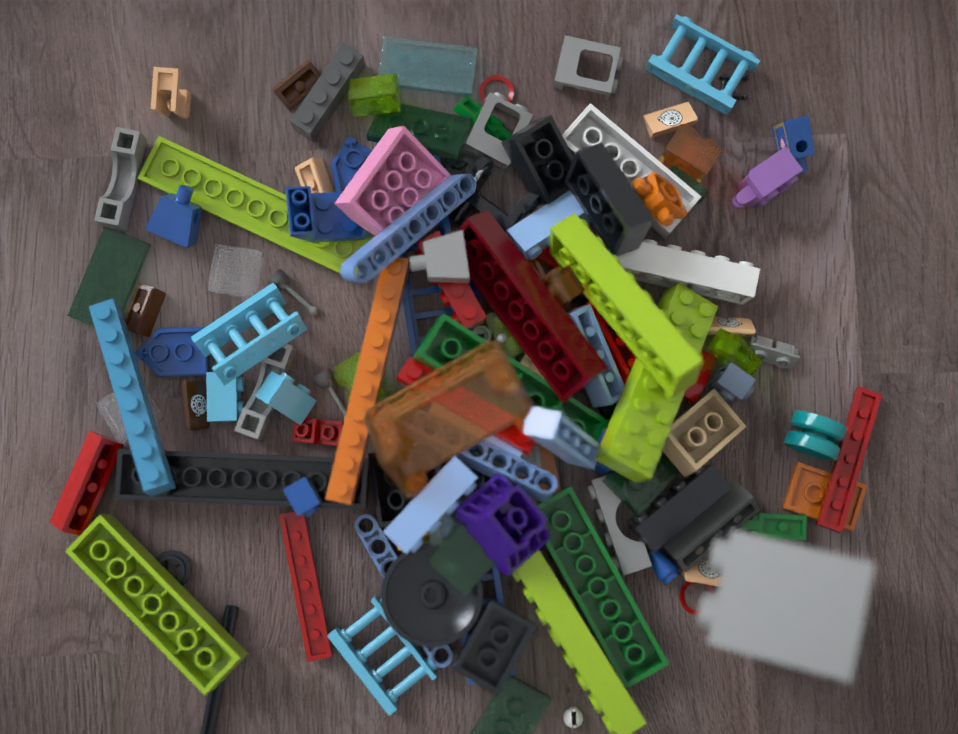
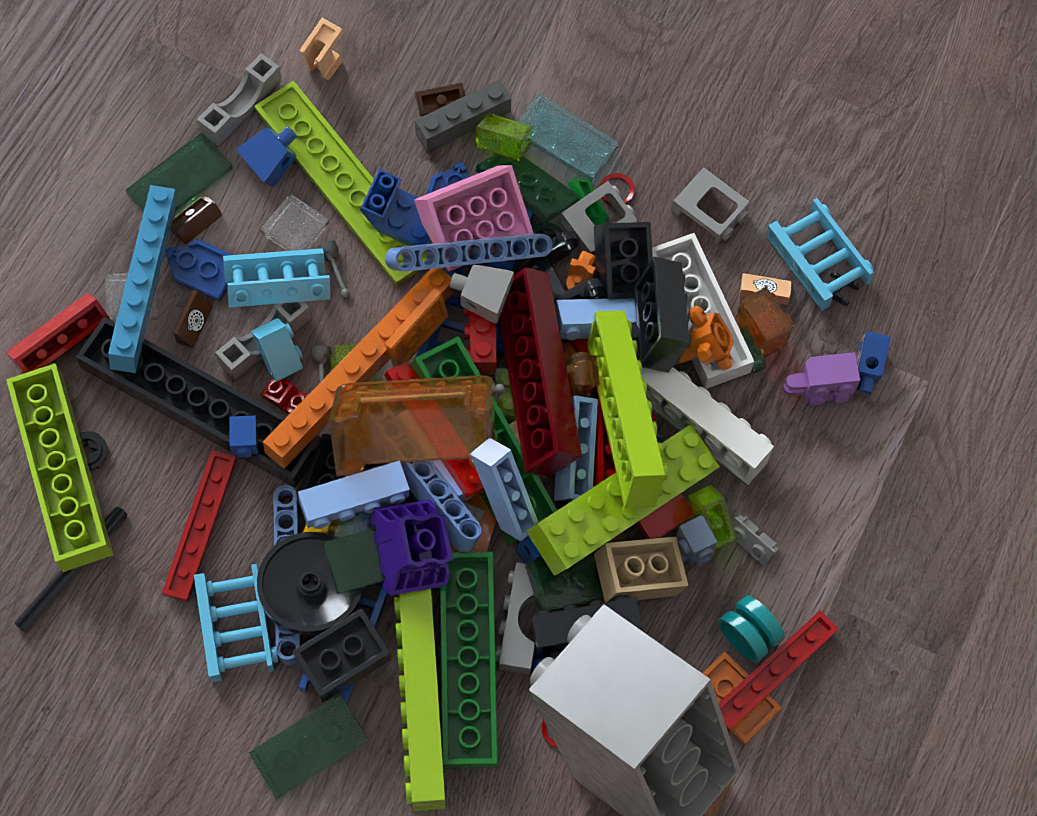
camera: 30 degrees right, 15 degrees down
(223, 401) = (221, 324): medium azure brick -> none
(314, 174) = (412, 178): light nougat slope -> none
(401, 321) = (417, 328): none -> orange tile
(510, 190) = (581, 269): none -> orange hips
(567, 717) = (385, 778): white hinge -> none
(738, 326) = (734, 502): light nougat slope -> none

